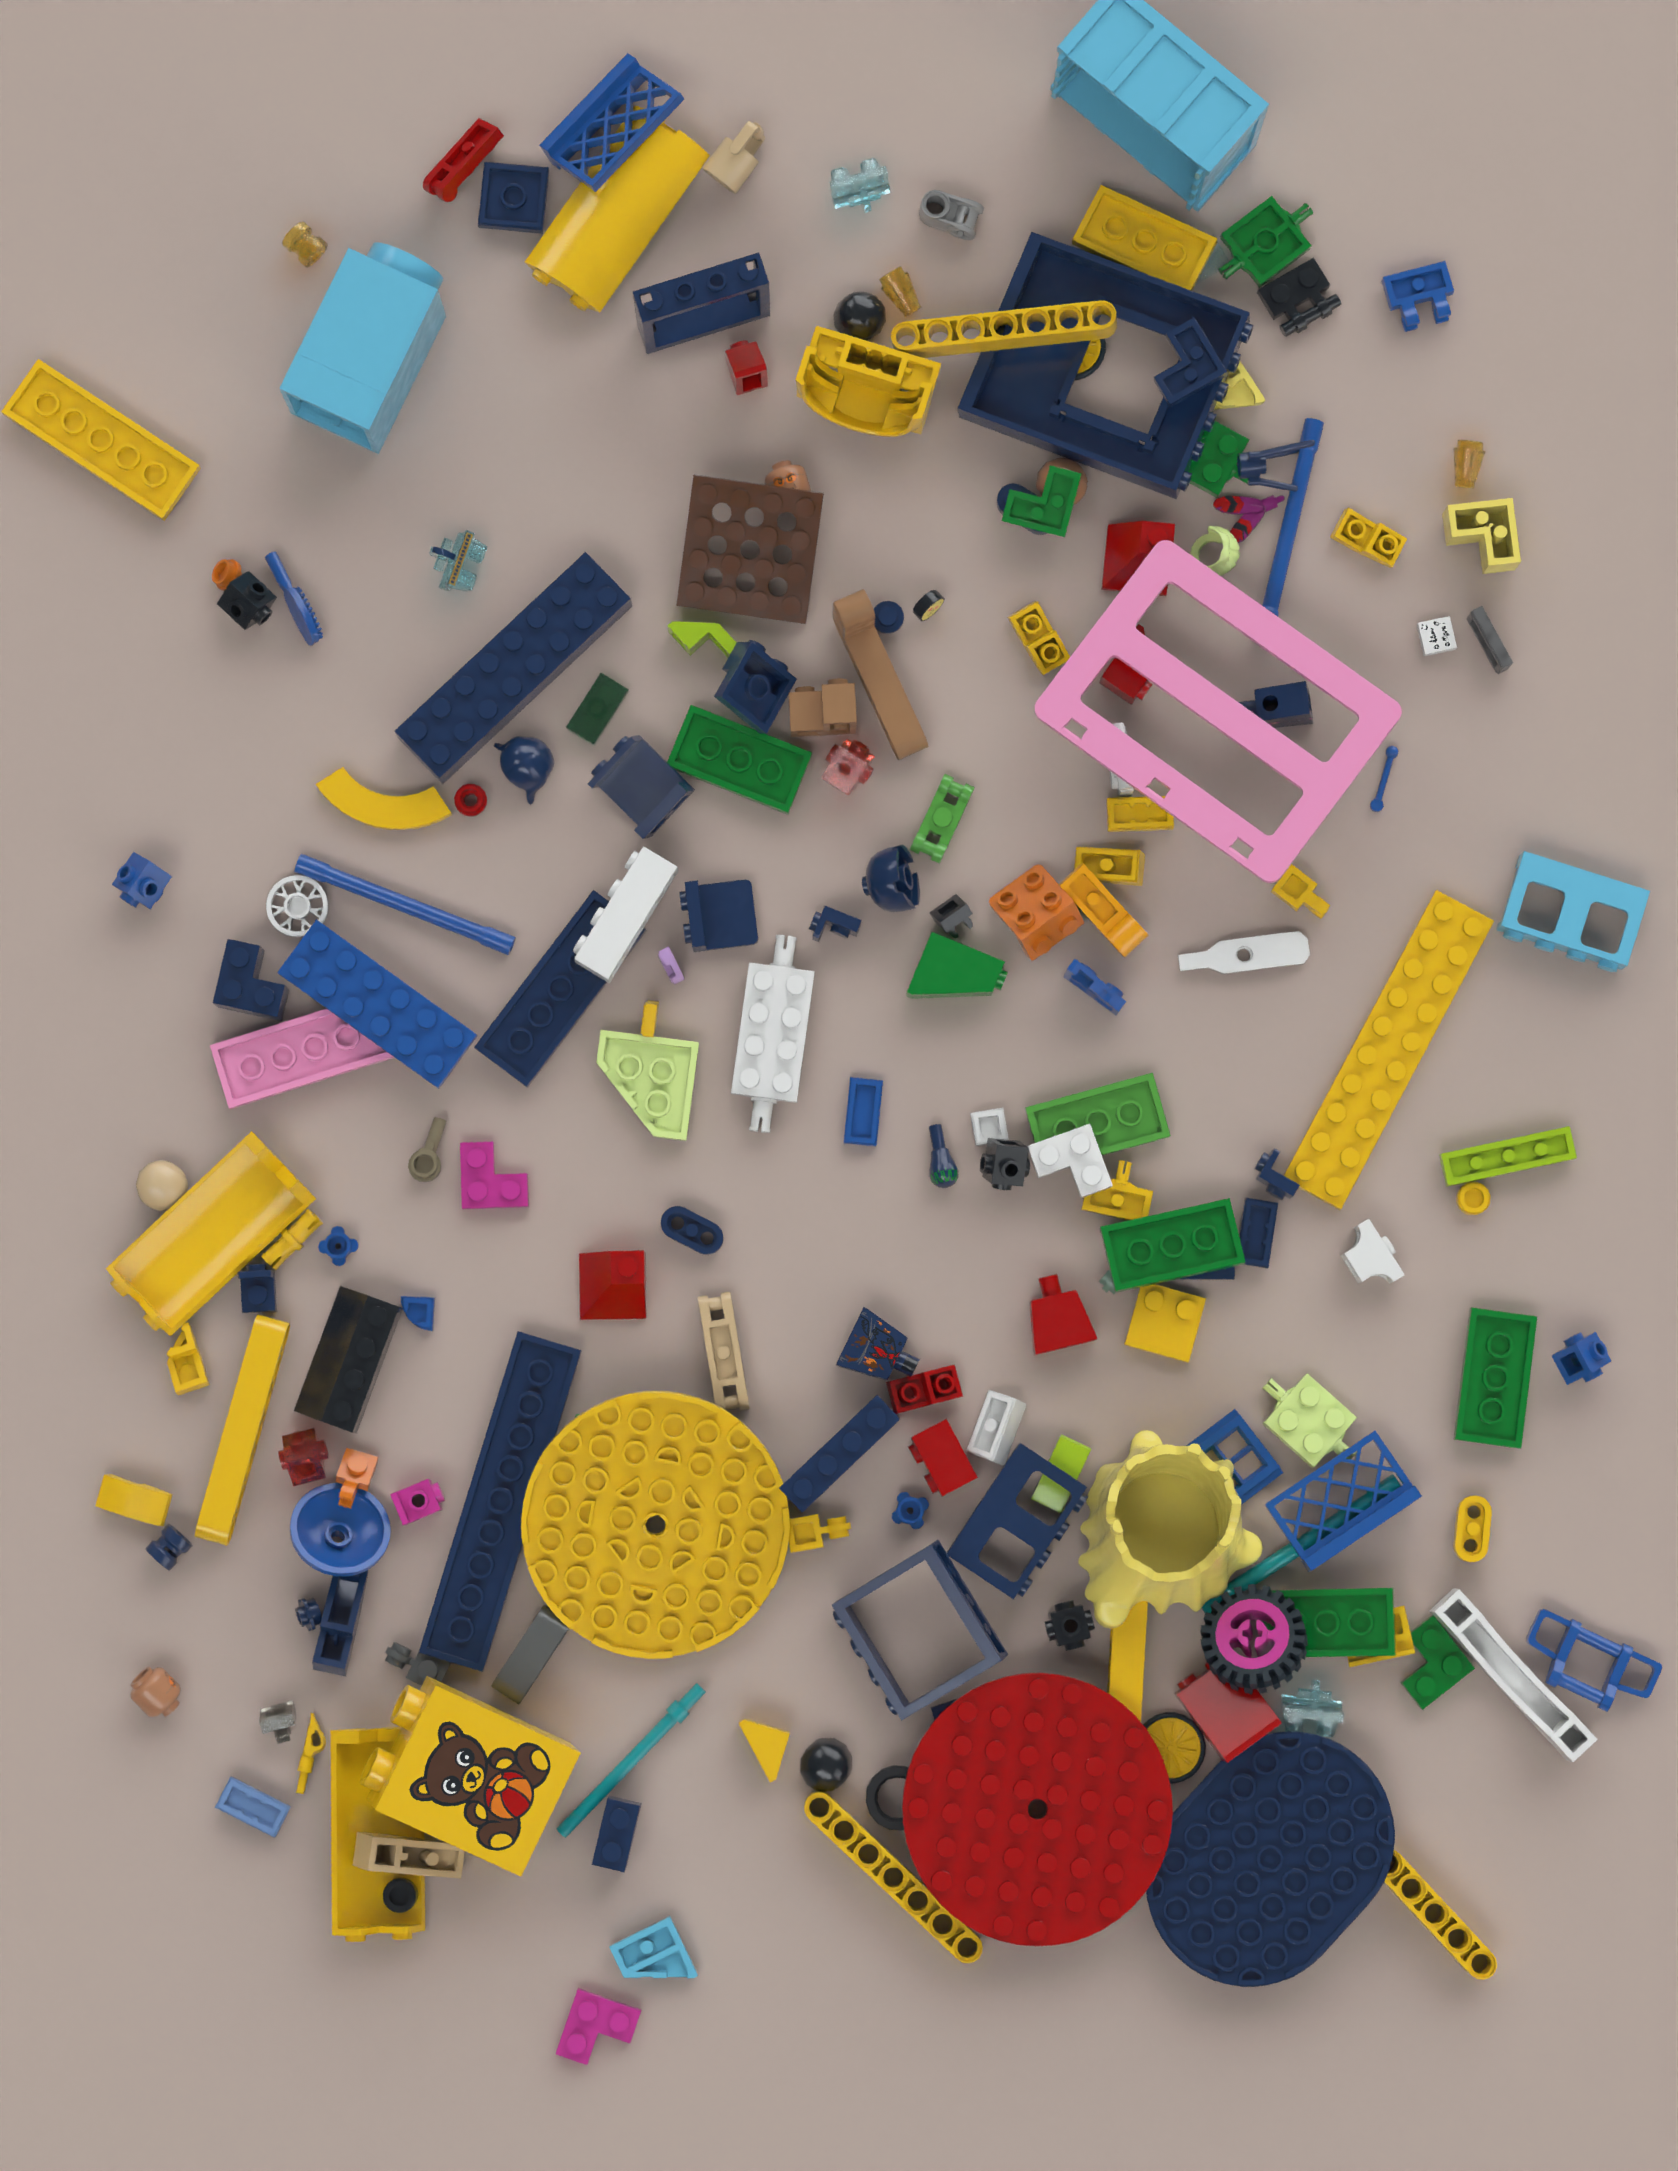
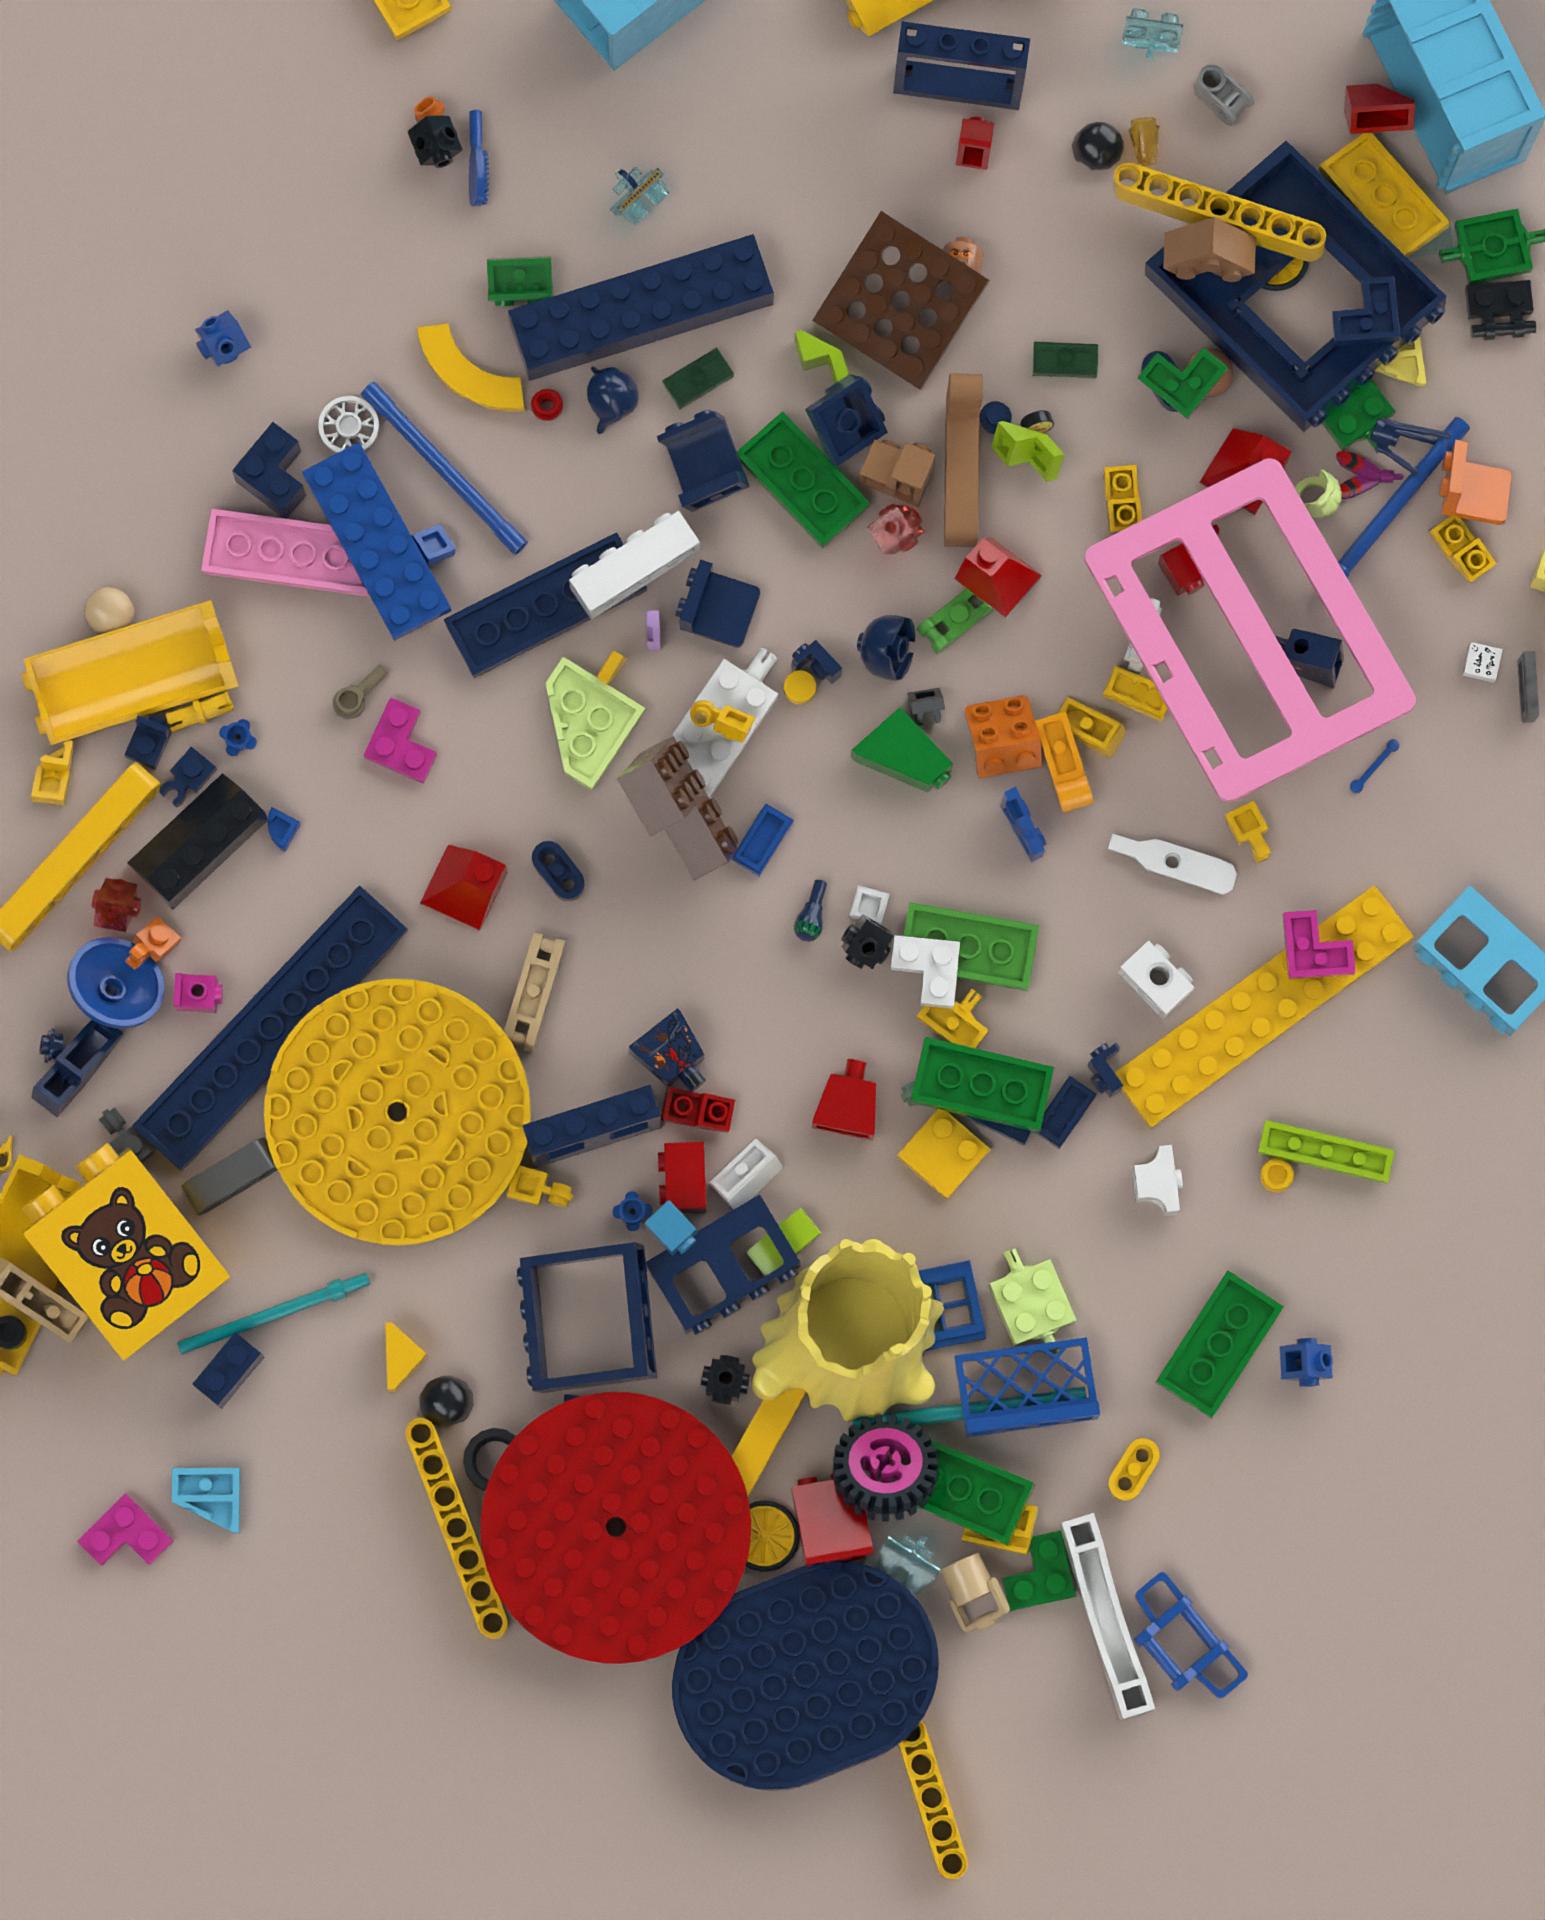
camera: 25 degrees right, 5 degrees down
(311, 1299) = (190, 772): none -> dark blue plate
(389, 695) = (519, 279): none -> green bracket
(431, 981) = (434, 544): none -> plate
(774, 1125) = (674, 799): none -> piece
(785, 1022) = (729, 722): none -> yellow plate
(829, 954) = (799, 687): none -> yellow tile
(868, 384) = (1076, 206): yellow piece -> none
(924, 632) = (1022, 445): none -> lime slope
(925, 532) = (1065, 360): none -> clear green plate
(958, 1514) = (671, 1229): none -> dark azure brick
(961, 766) = (996, 575): none -> red slope
(1013, 371) = (1209, 247): none -> medium nougat brick
(1100, 162) = (1377, 109): none -> red slope
(1262, 1073) = (1160, 998): none -> white brick
(1355, 478) = (1473, 489): none -> orange bracket
(1376, 1702) = (967, 1582): none -> tan piece
(1408, 985) = (1307, 955): none -> dark pink plate

